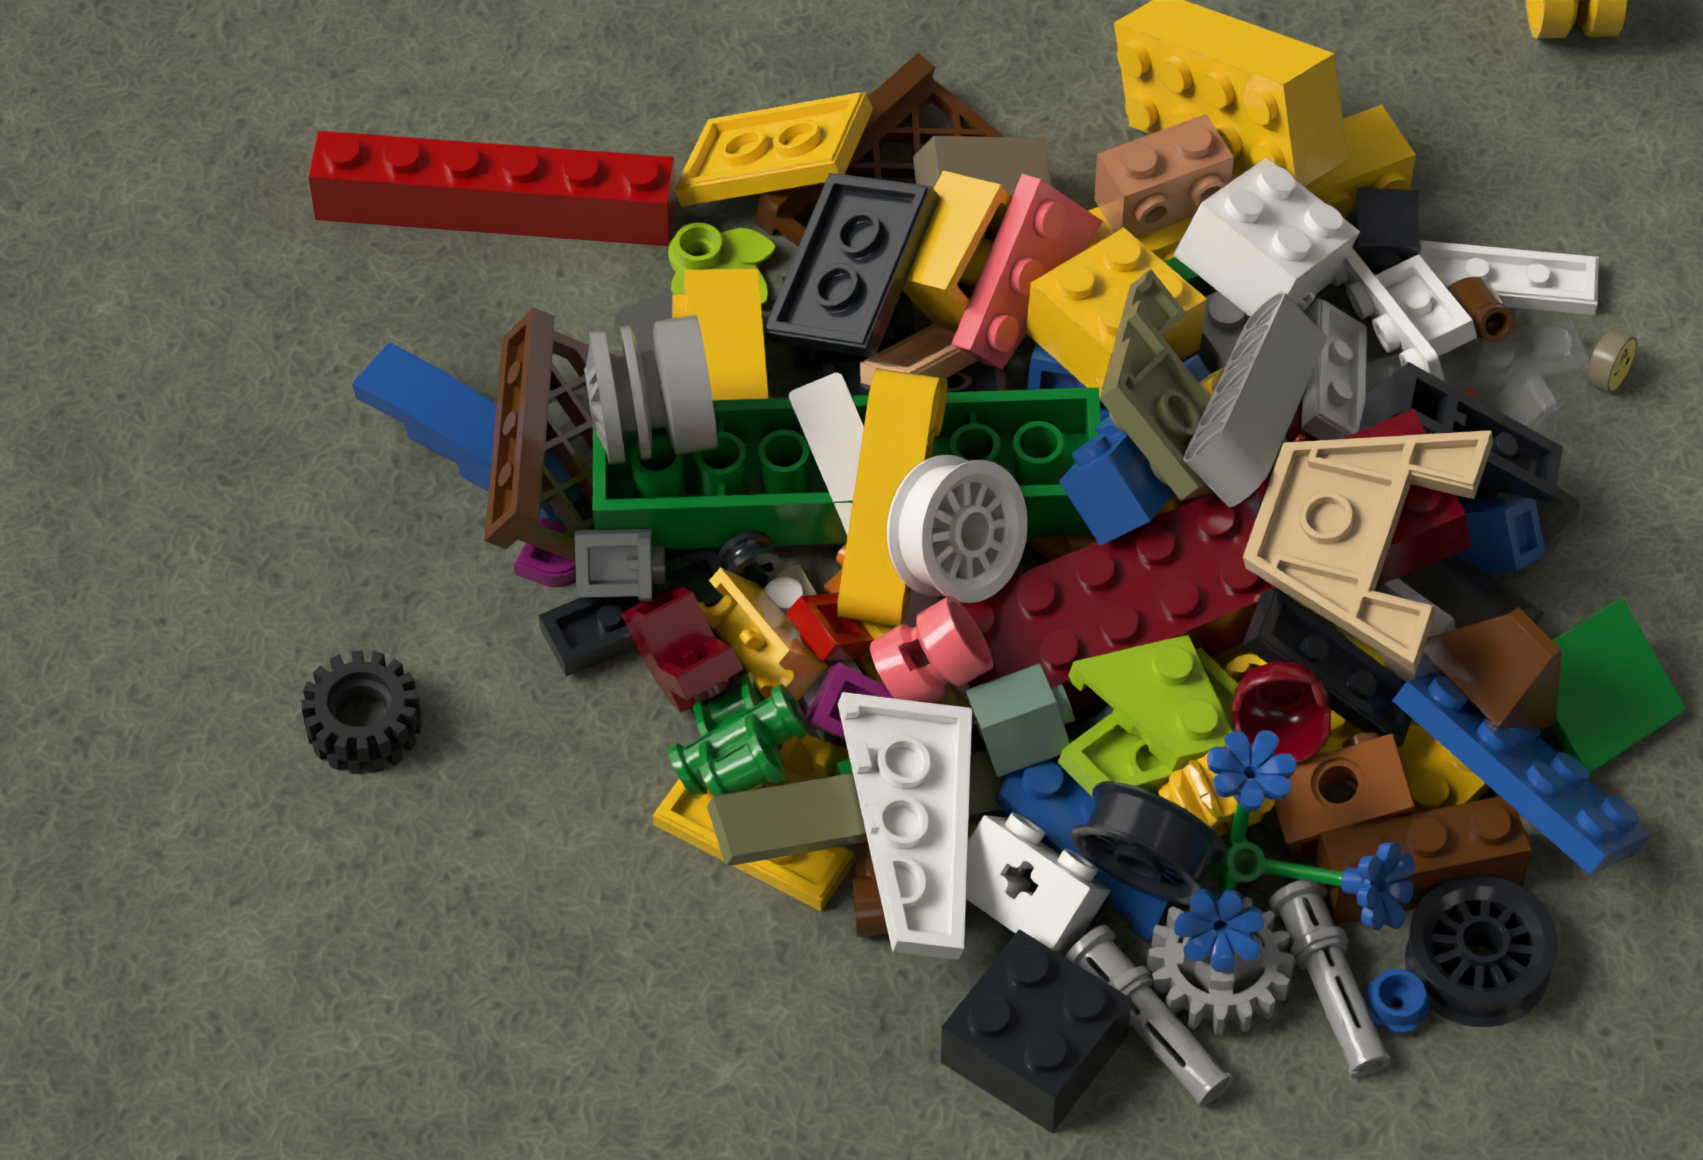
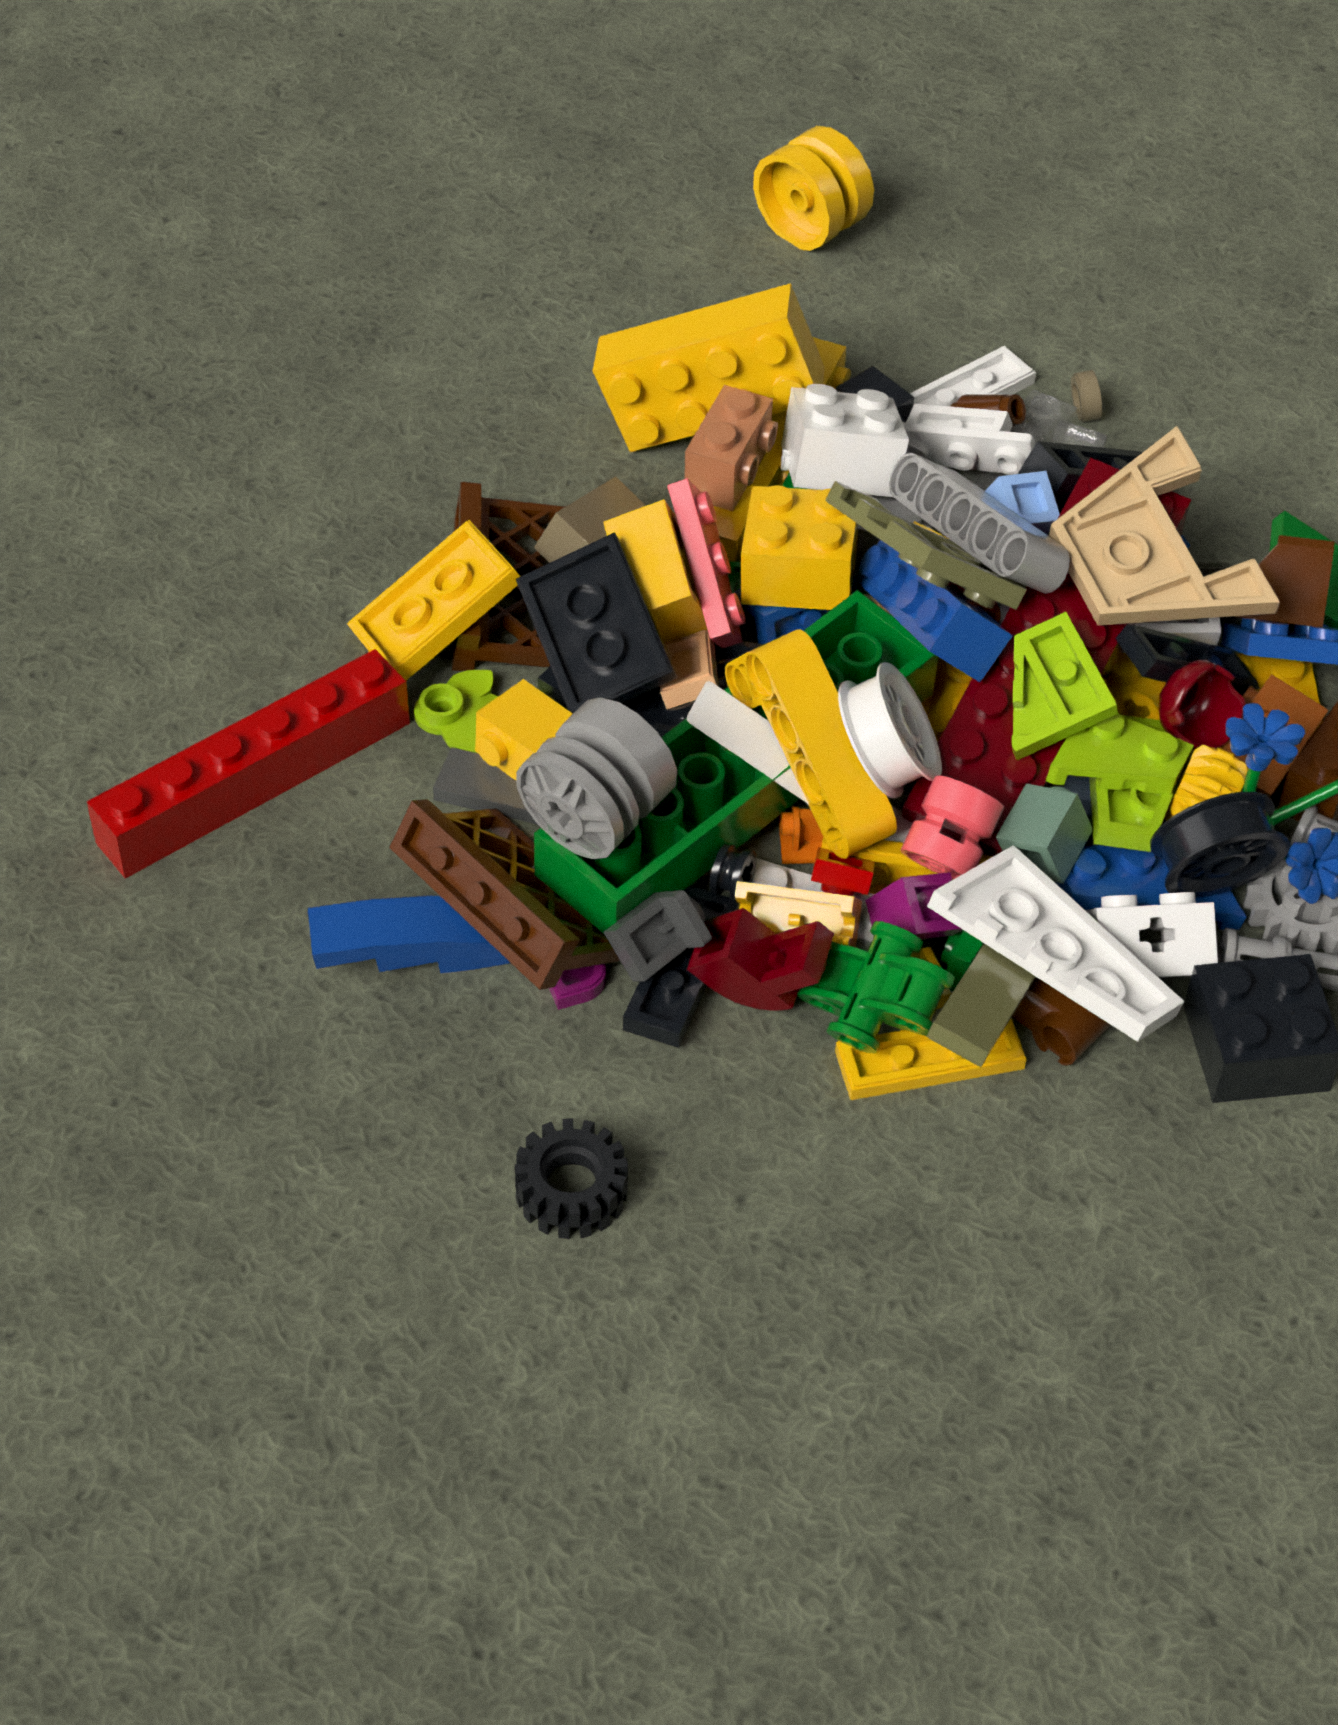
camera: 45 degrees left, 5 degrees down
(1146, 595) = (1055, 687): none -> lime wing
(1330, 408) = (1028, 496): none -> light blue panel

